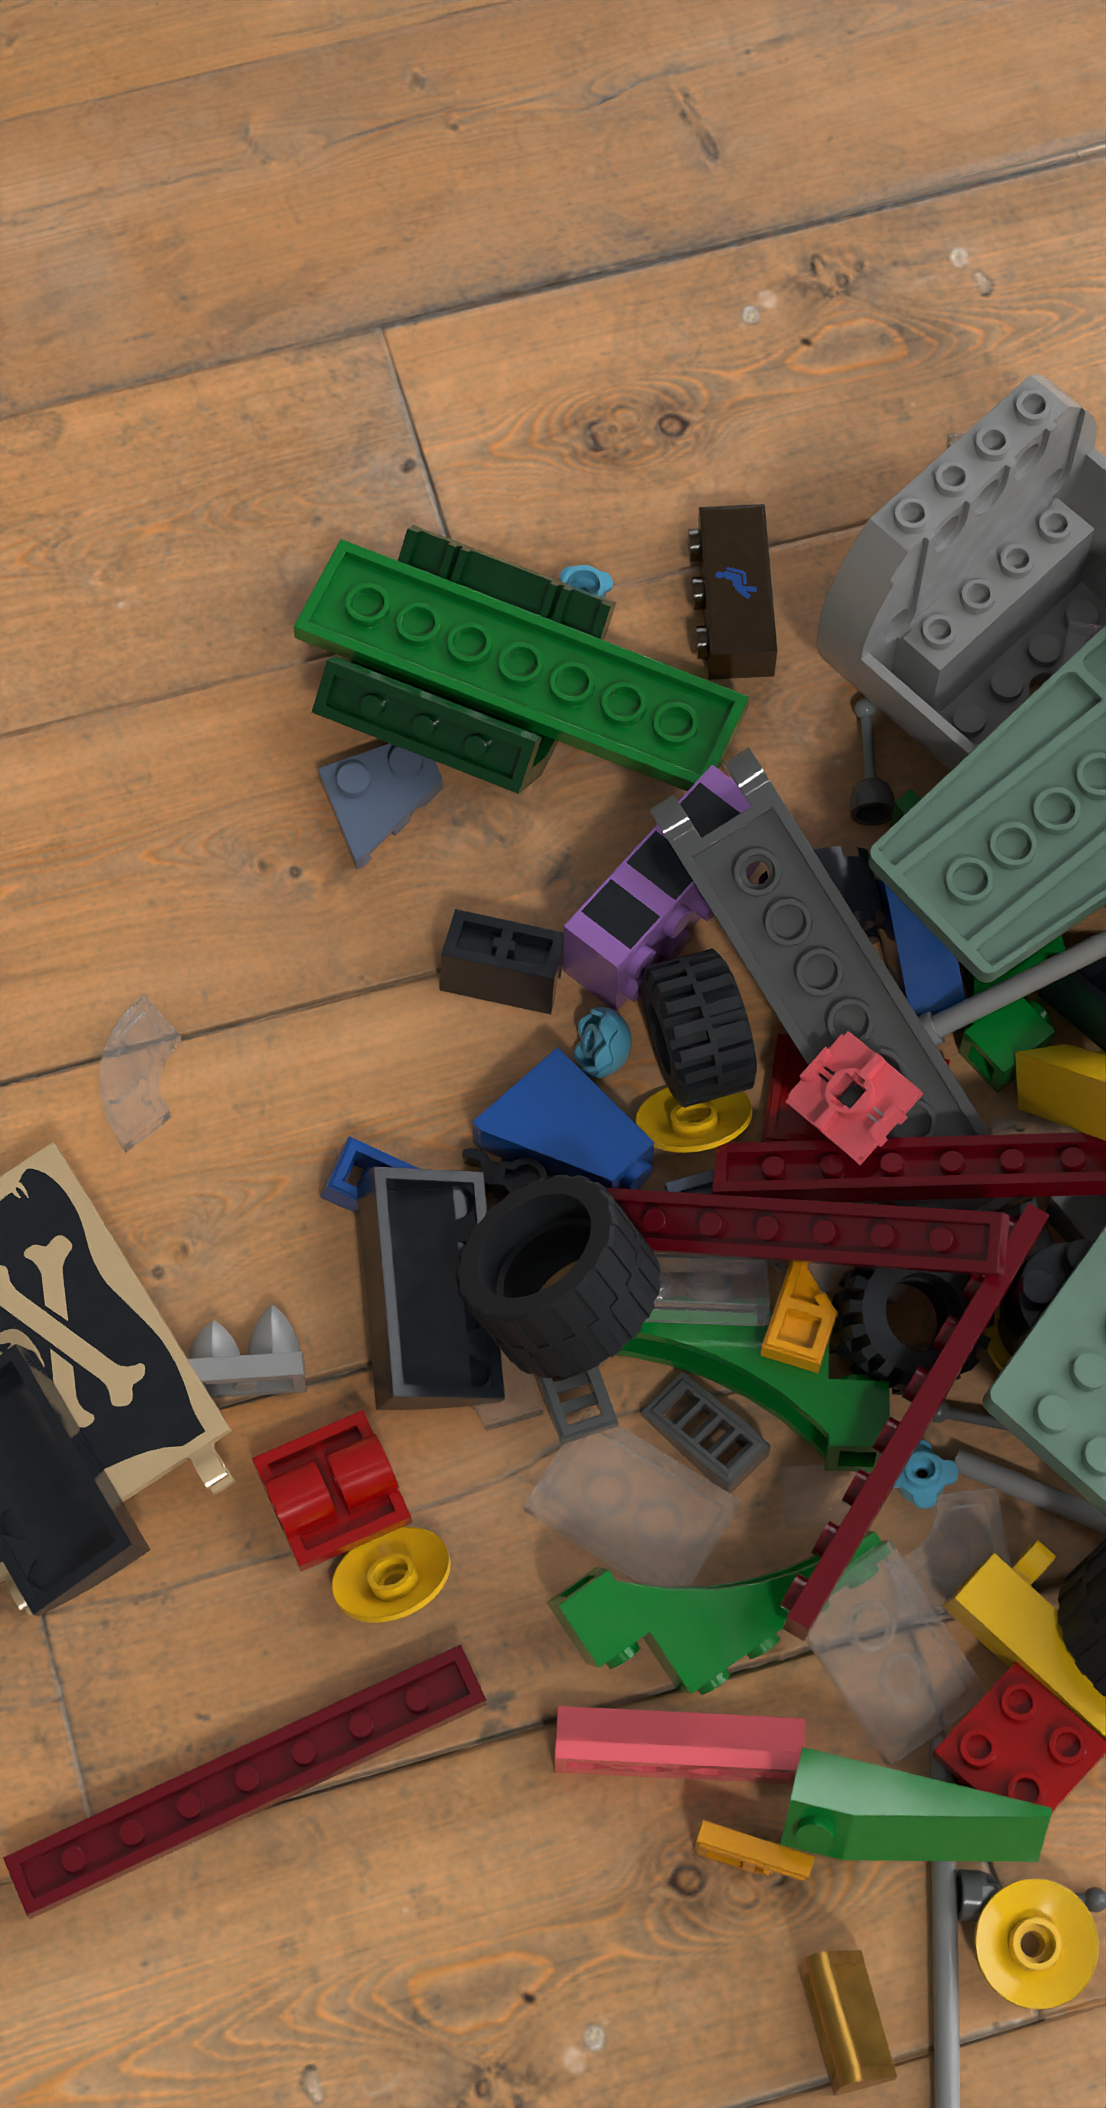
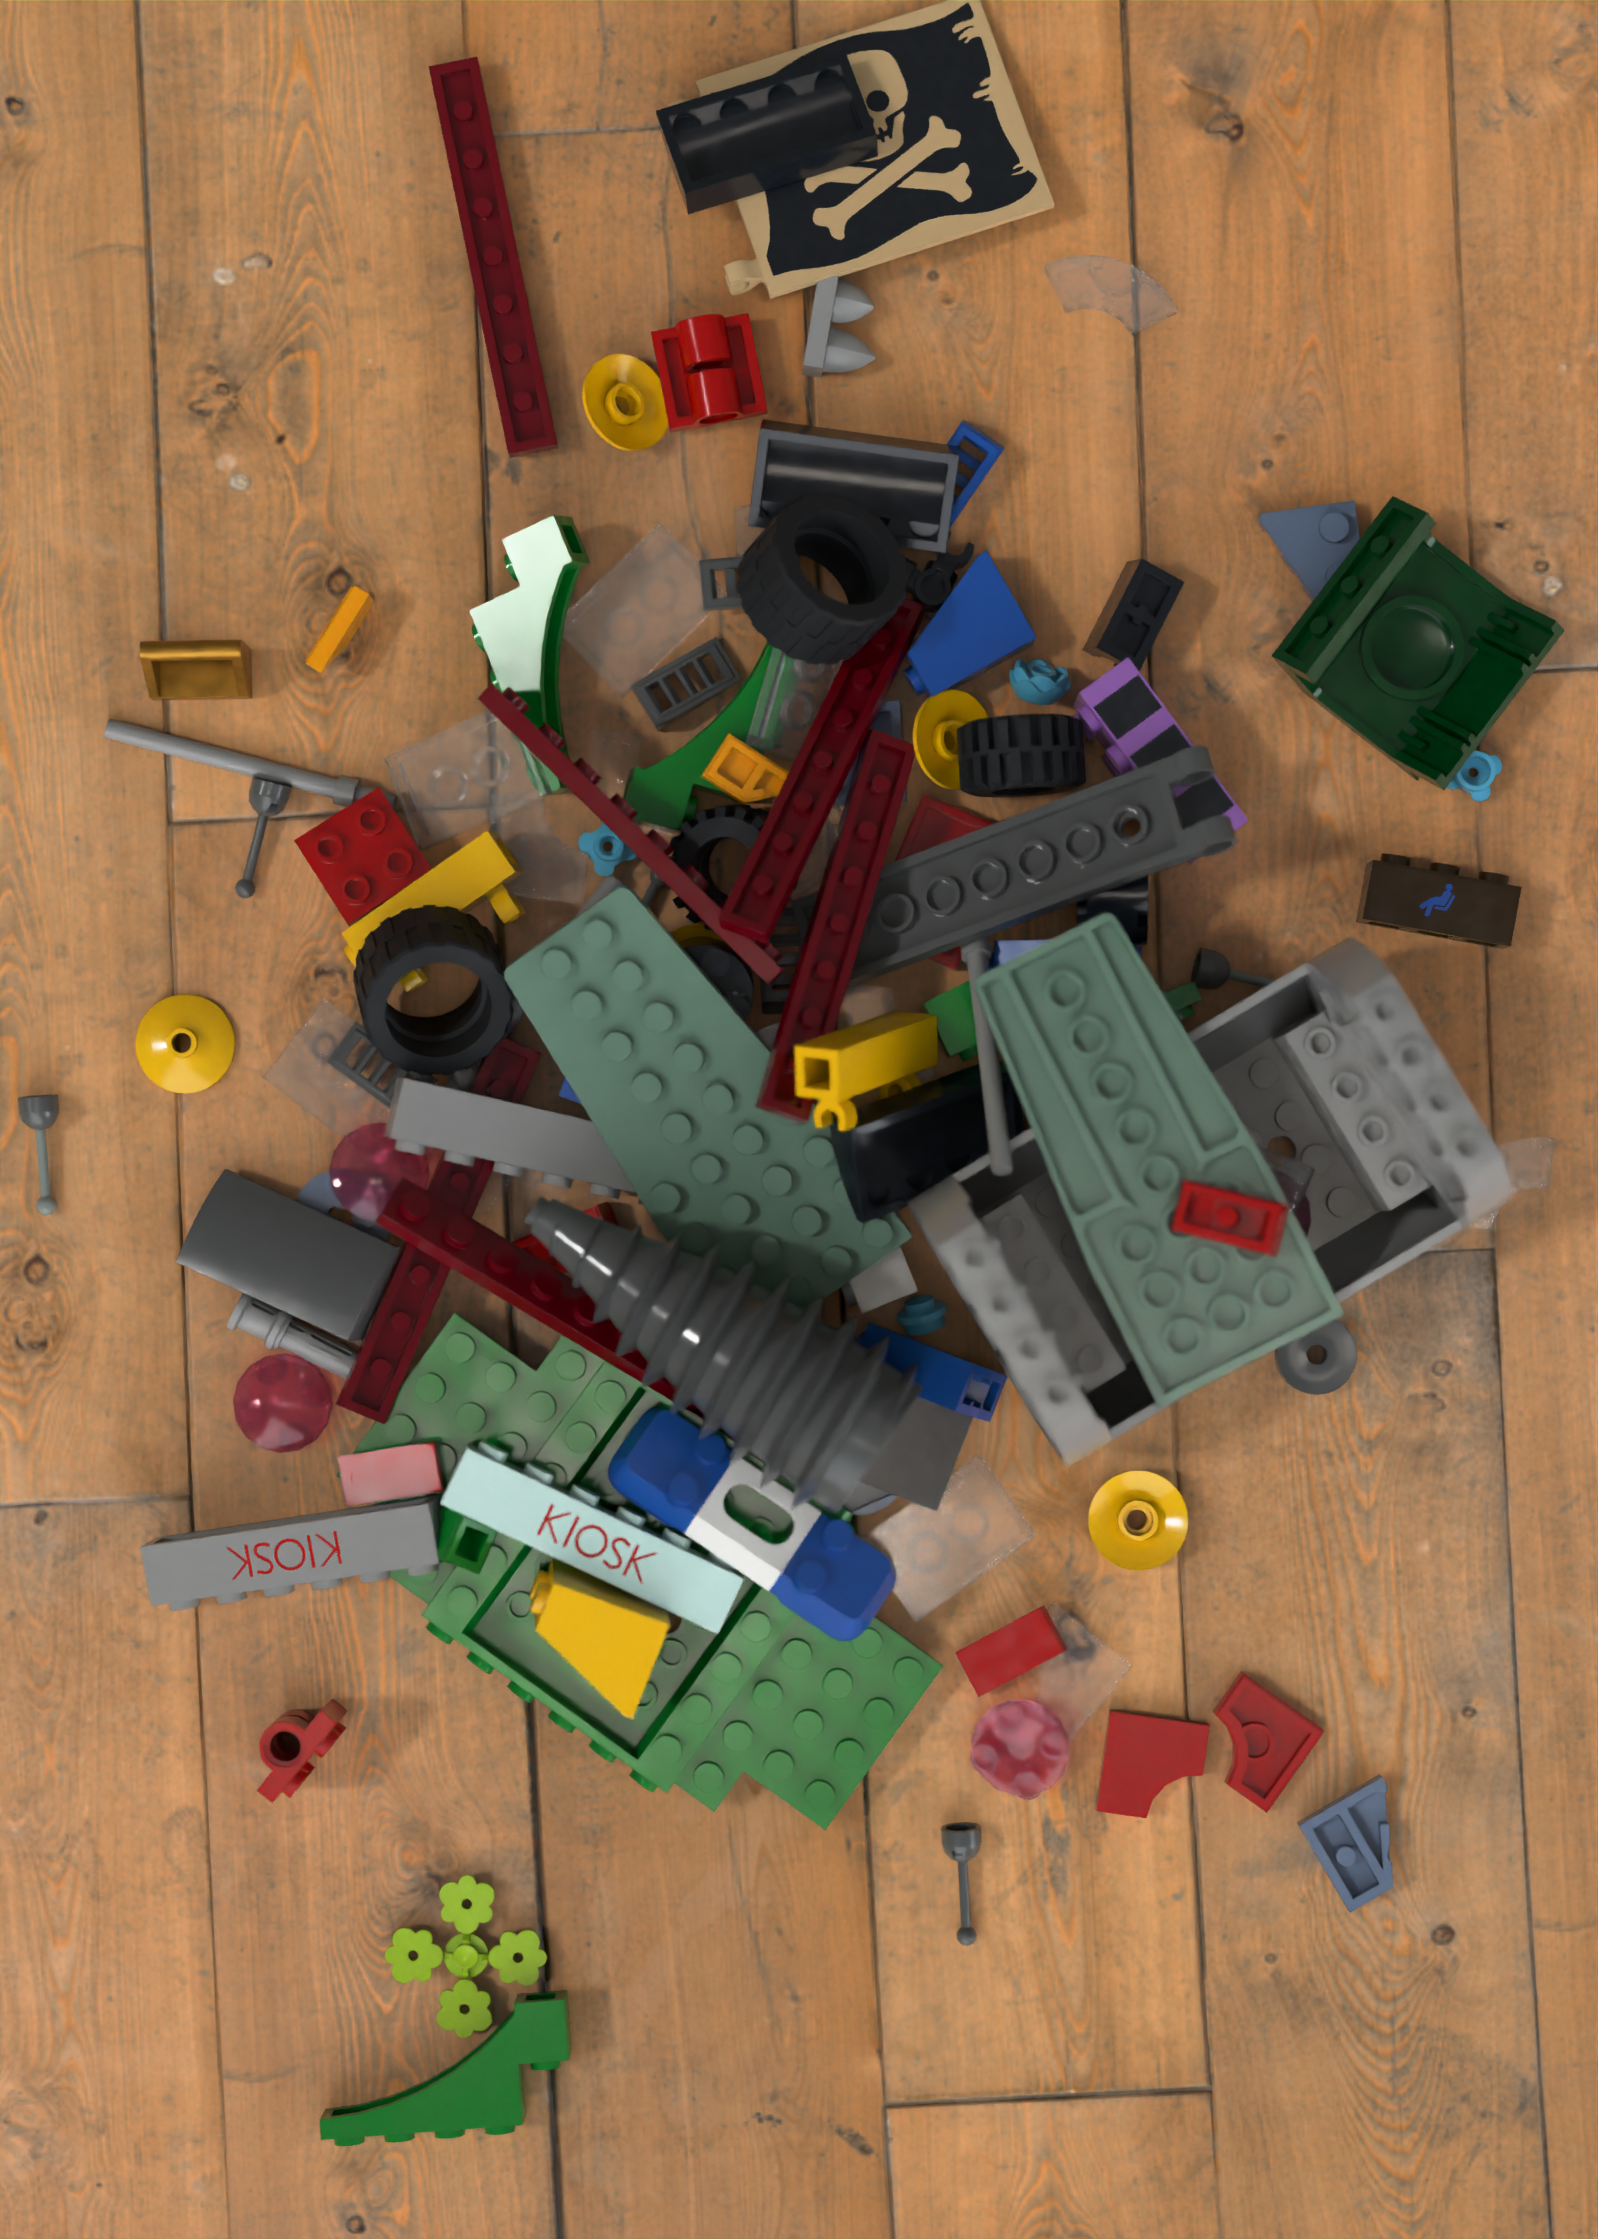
camera: 105 degrees right, 20 degrees up
(520, 666) = (1401, 691): green plate -> none
(678, 1745) = (439, 598): coral fence -> none
(874, 1114) = (910, 884): coral piece -> none
(891, 1815) = (332, 726): green wedge -> none
(1065, 1938) = (196, 834): yellow dish -> none

